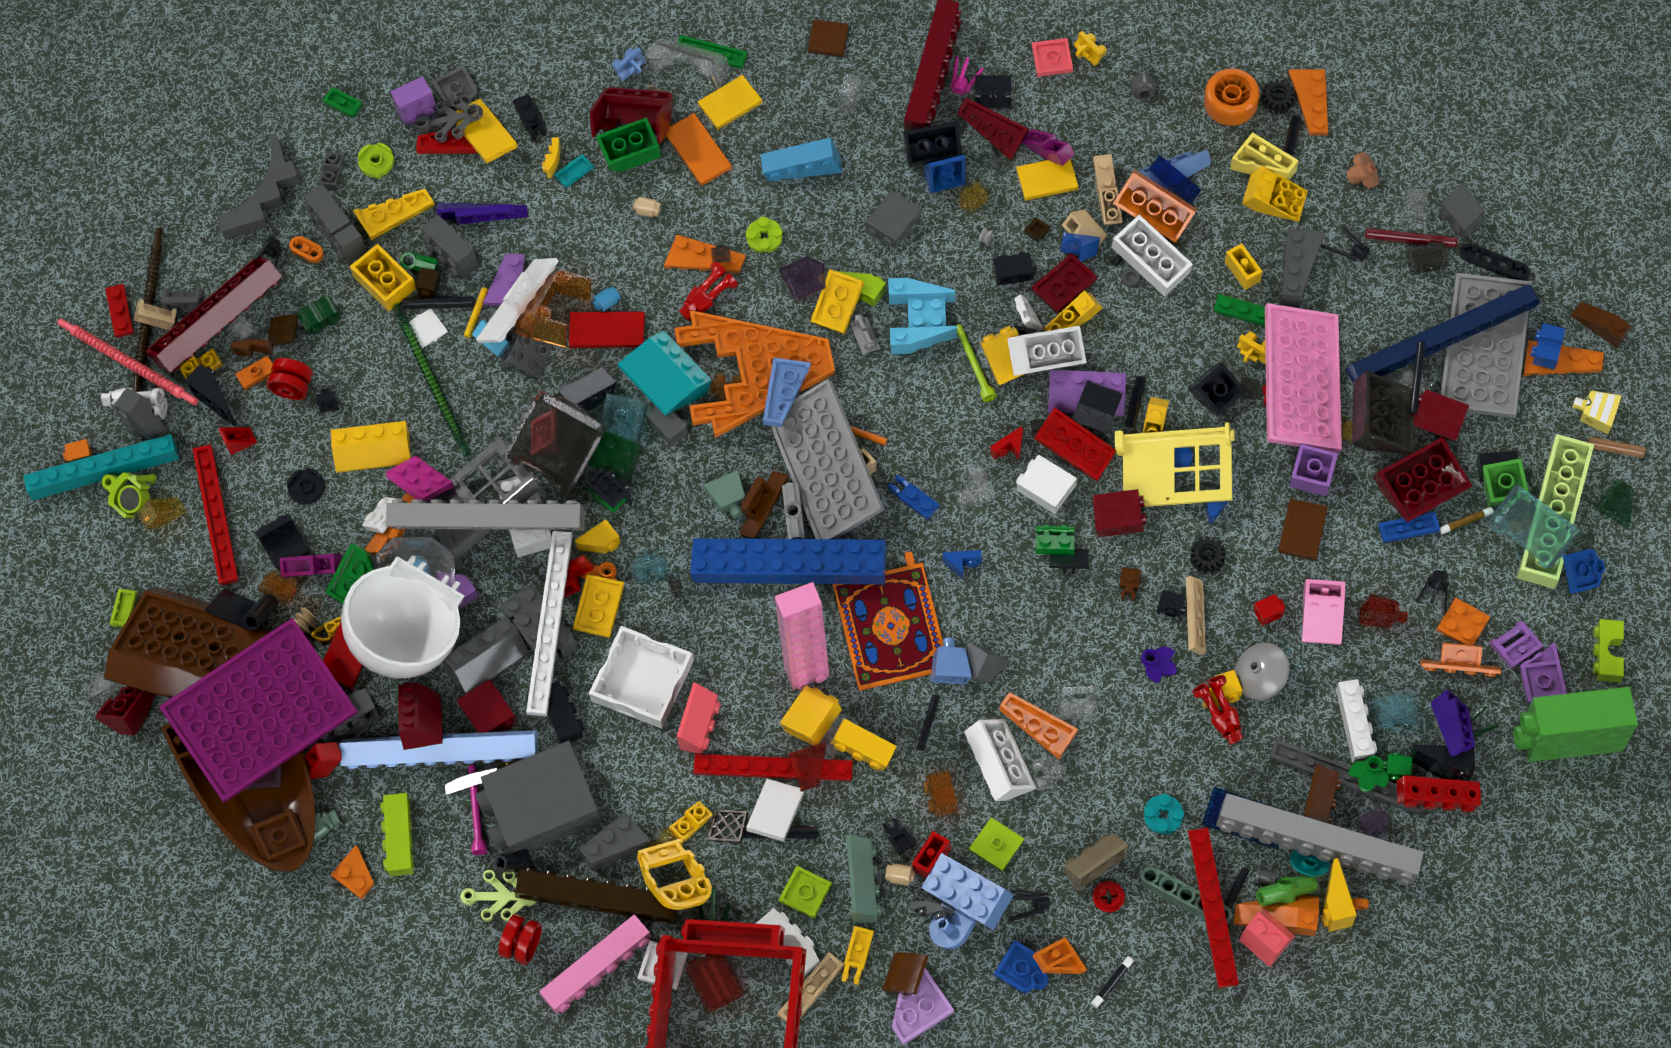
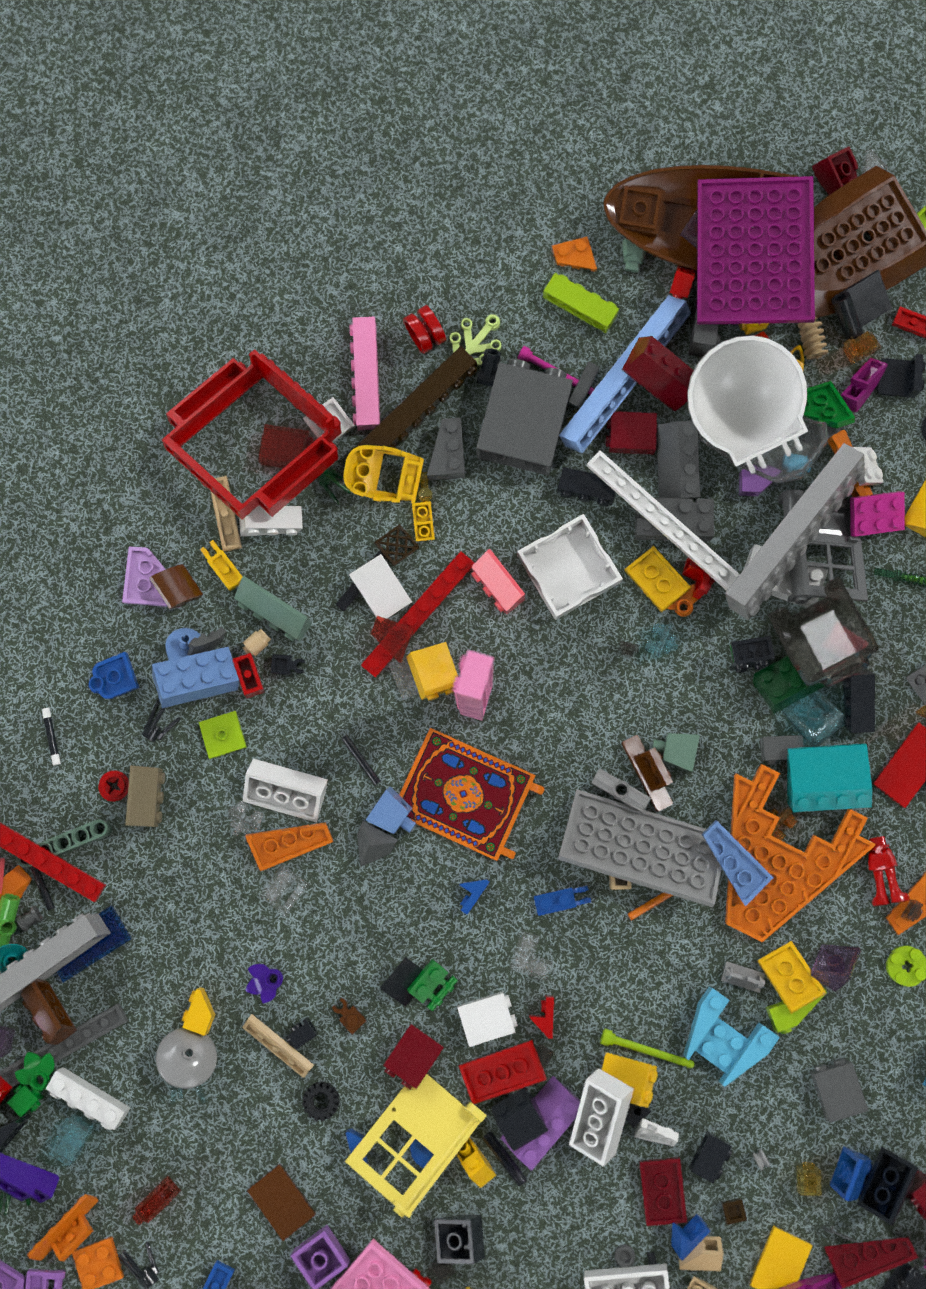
camera: 130 degrees right, 15 degrees up
(599, 539) = (715, 621): yellow slope -> none
(789, 561) = (577, 752): blue brick -> none
(805, 892) = (299, 564): lime plate -> none
(863, 745) = (377, 692): yellow brick -> none
(941, 794) = (293, 723): clear orange brick -> none
(1059, 959) = (96, 709): orange wing -> none
(1076, 313) = (625, 1173): yellow slope -> none
(1161, 825) = (133, 874): teal plate -> none
(1227, 719) = (172, 994): red piece -> none
(1269, 609) = (234, 1111): red brick -> none
(1323, 611) = (196, 1153): bright pink slope -> none

